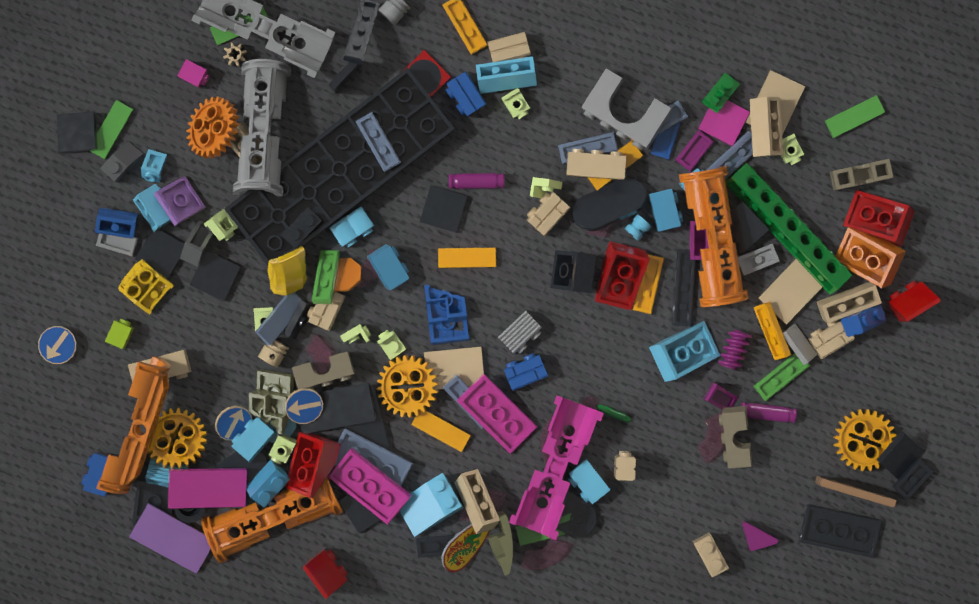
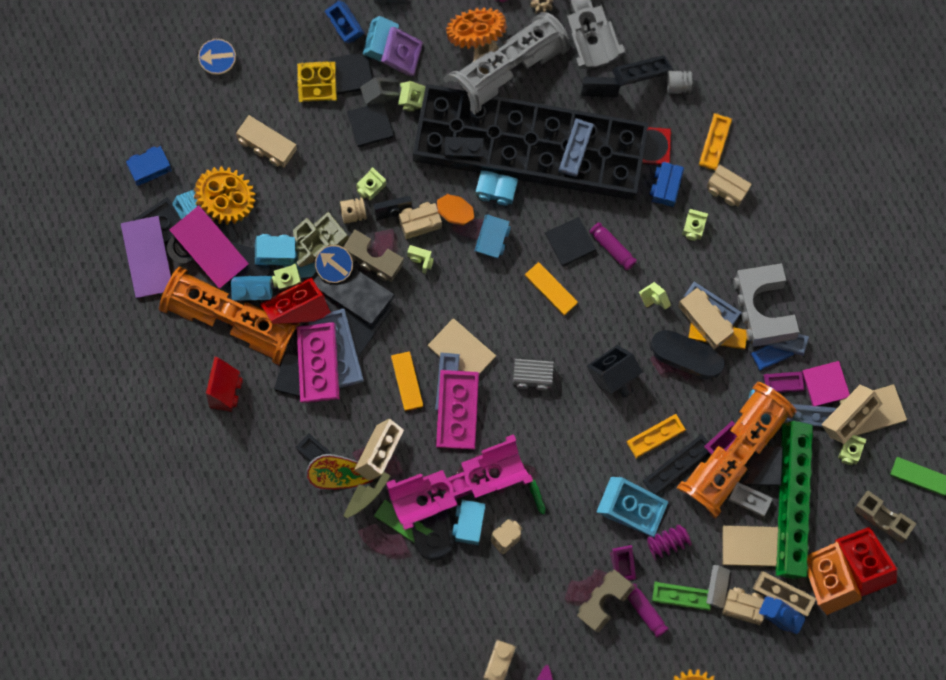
camera: 40 degrees right, 15 degrees down
(117, 244) = (330, 37): light grey tile -> none
(119, 333) = (265, 92): lime brick -> none
(150, 388) = (172, 173): orange piece -> none
(153, 166) = (408, 14): medium azure bracket -> none
(232, 421) = (274, 223): blue piece -> none
(278, 318) = (381, 190): sand blue tile -> none
(288, 272) = (422, 167): yellow slope -> none
(326, 277) = (443, 198): bright green tile -> none
(391, 344) = (437, 289): yellowish green bracket -> none
(406, 369) = (405, 339): light orange gear -> none
(430, 505) = (344, 421): medium azure slope -> none
(445, 309) = (497, 305): blue slope -> none
(506, 75) = (708, 198): medium azure brick -> none
(525, 372) = (507, 403): blue brick -> none
(548, 213) = (638, 316): tan brick -> none
(621, 275) = (643, 408): red slope -> none
(638, 227) = (690, 390): medium azure wheel -> none
(665, 210) = (721, 398): dark azure brick -> none
(720, 93) = (843, 362): green plate -> none
(772, 331) = (708, 557): light orange tile -> none
(912, 301) = (829, 640): red slope -> none

